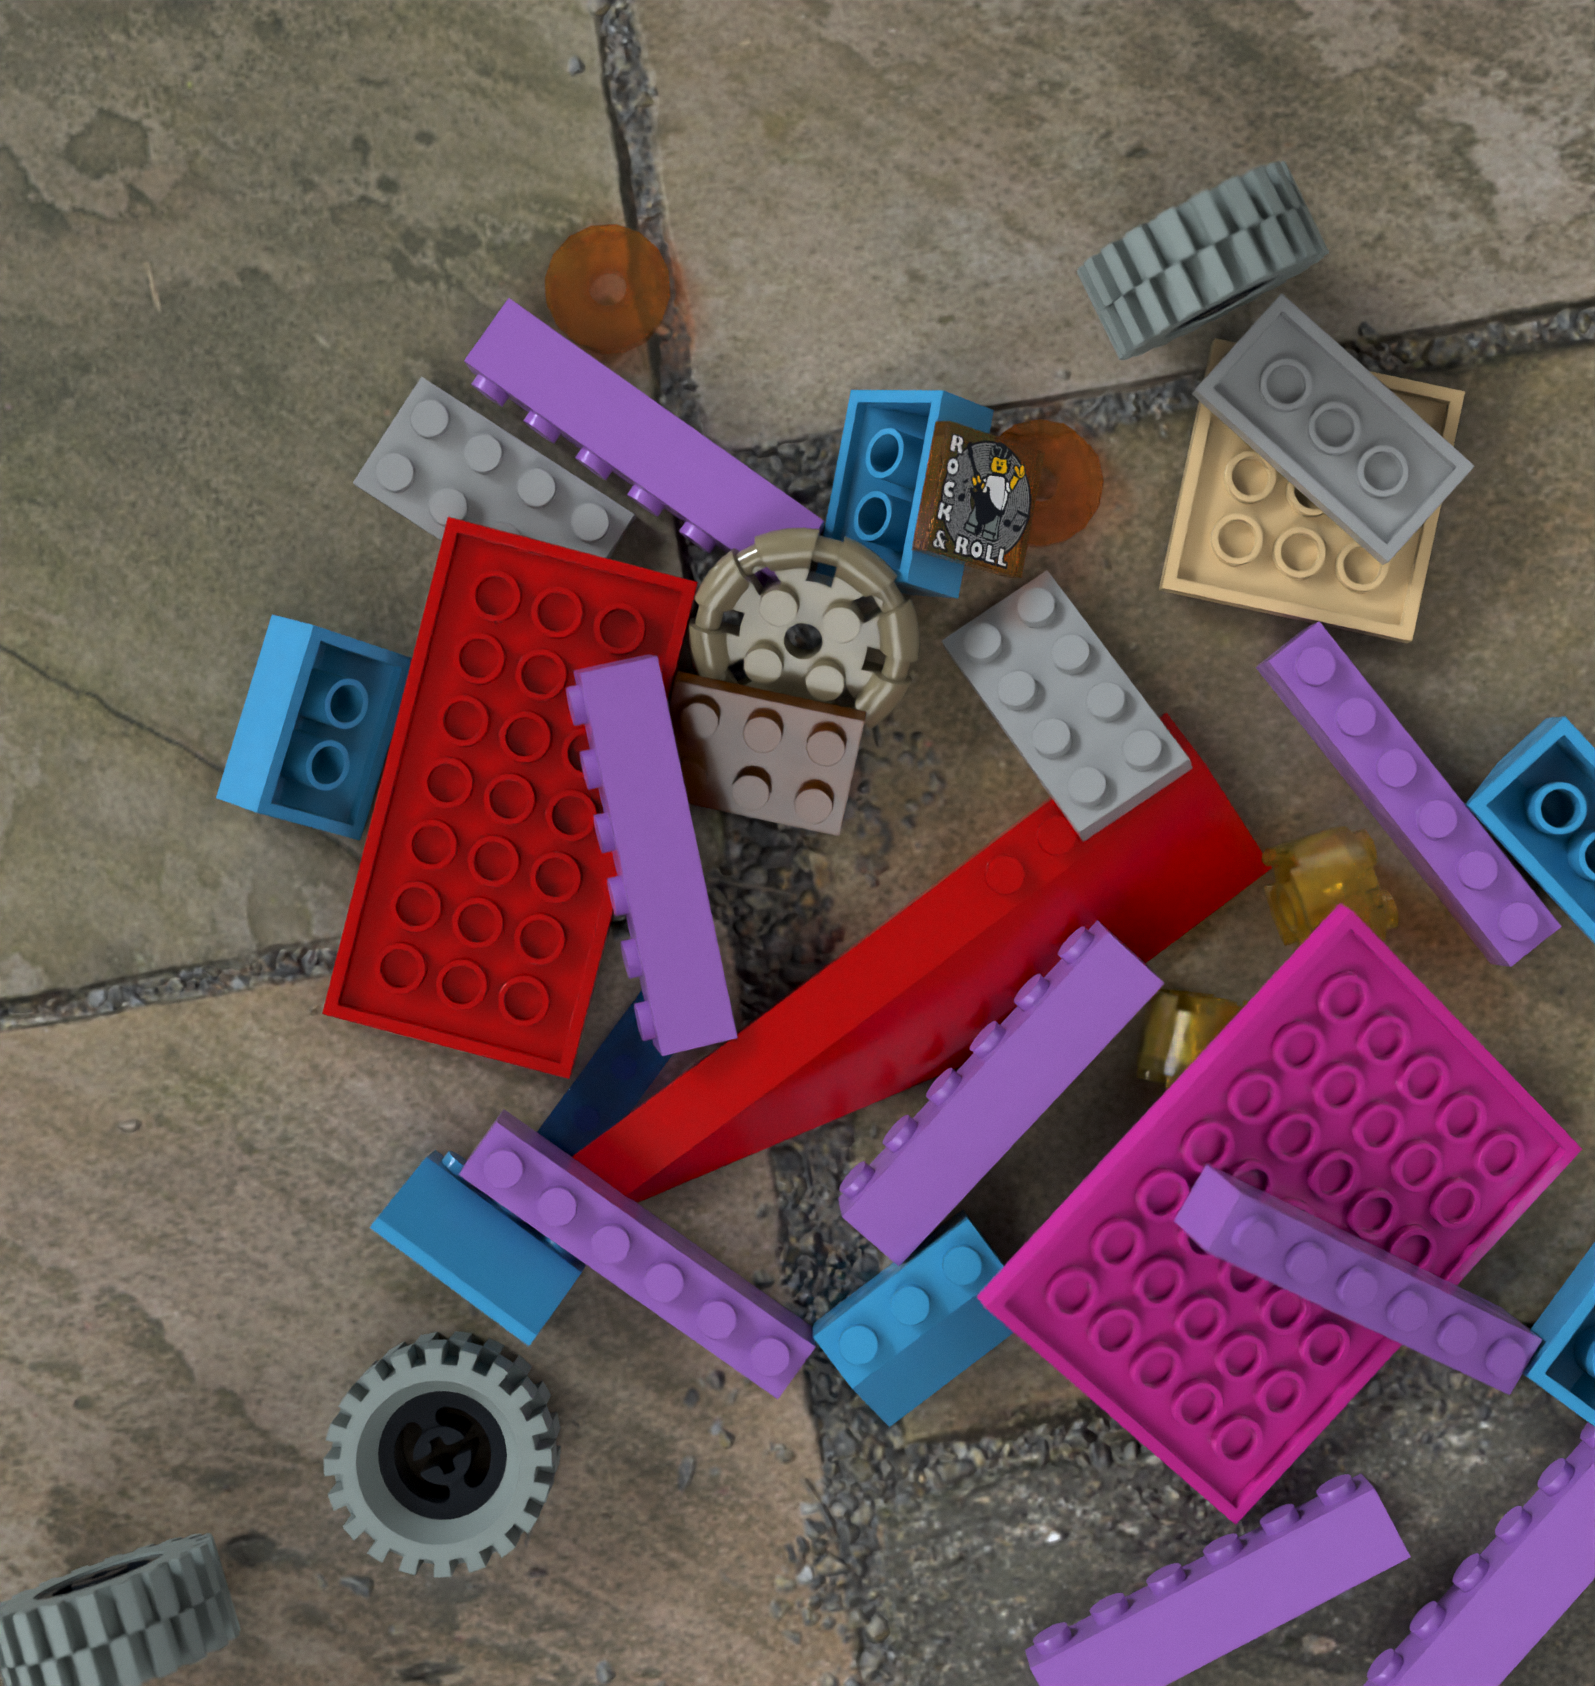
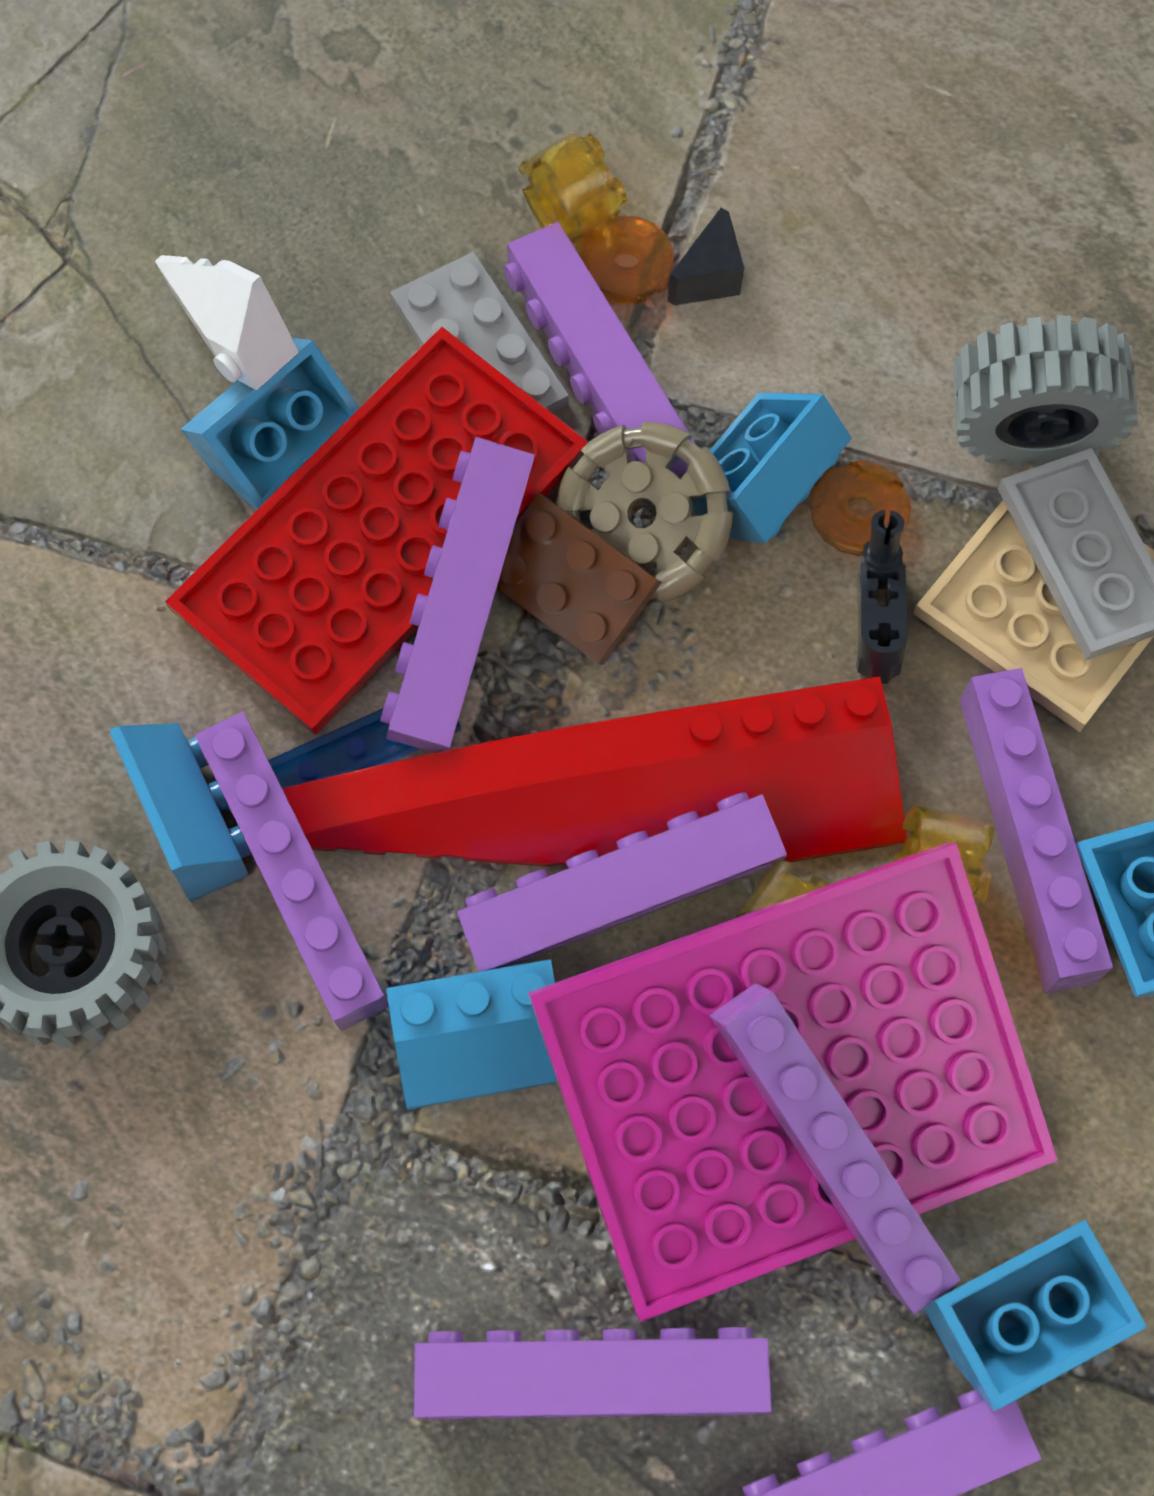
camera: 25 degrees right, 20 degrees down
(203, 656) = (232, 317): none -> white wedge
(500, 241) = (572, 186): none -> clear yellow brick
(717, 250) = (710, 266): none -> black slope
(978, 500) = (812, 479): tile -> none
(1066, 705) = (809, 642): light grey plate -> none
(1127, 636) = (880, 628): none -> black beam

